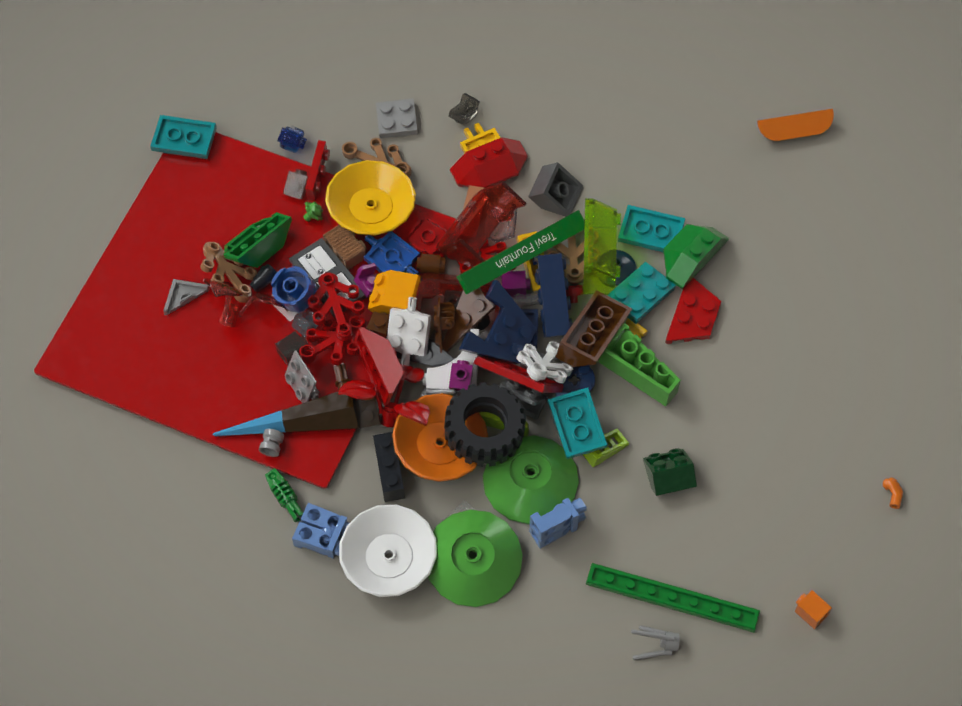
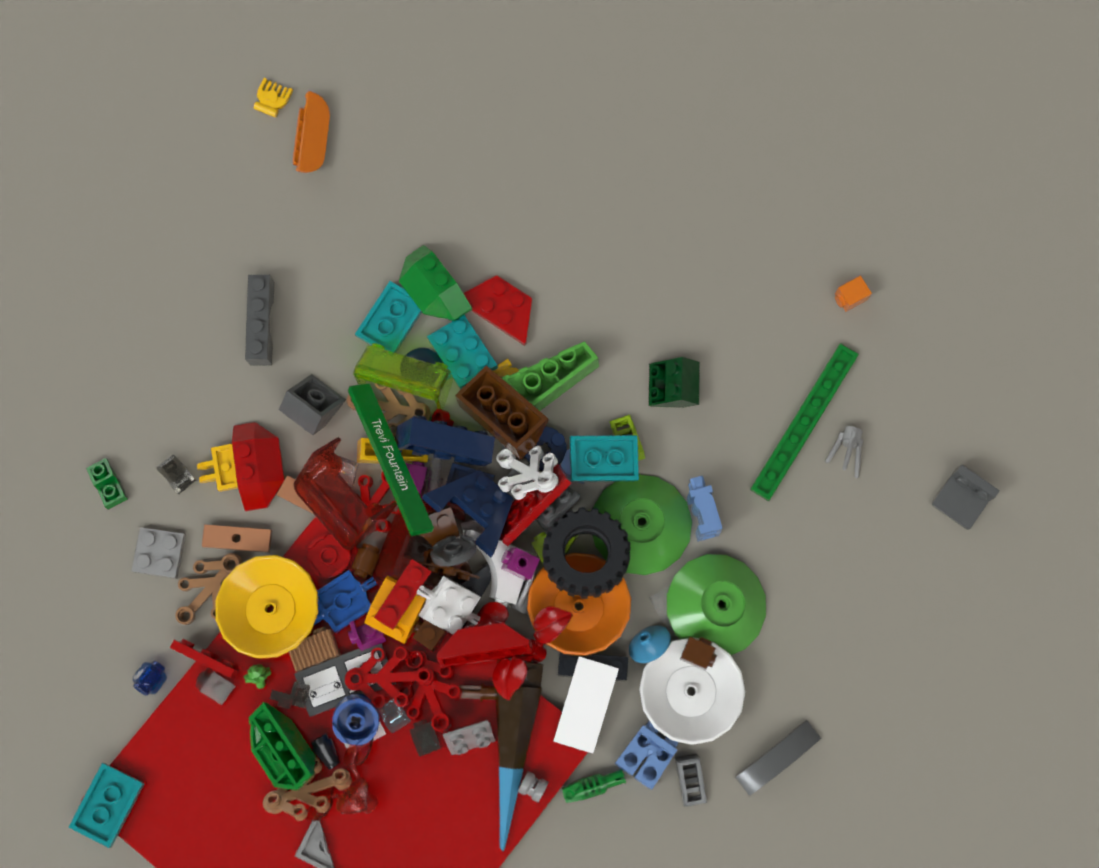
camera: 75 degrees left, 15 degrees up
(302, 241) = (298, 696): none -> clear smoke bracket
(313, 565) = (686, 760): none -> dark grey slope
(349, 646) = (778, 758): none -> dark grey slope
(353, 466) = (586, 704): none -> white sticker
(406, 287) = (402, 594): none -> red plate
(421, 506) = (649, 644): none -> dark azure dish
(421, 541) = (699, 653): none -> reddish brown brick
(424, 168) = (224, 538): none -> nougat tile
(443, 67) = (106, 483): none -> green slope
(454, 316) = (453, 551): none -> dark grey tile
(634, 125) = (258, 336): none -> dark grey arch
(817, 88) = (270, 99): none -> yellow piece
(896, 490) = (749, 177): orange arm -> none

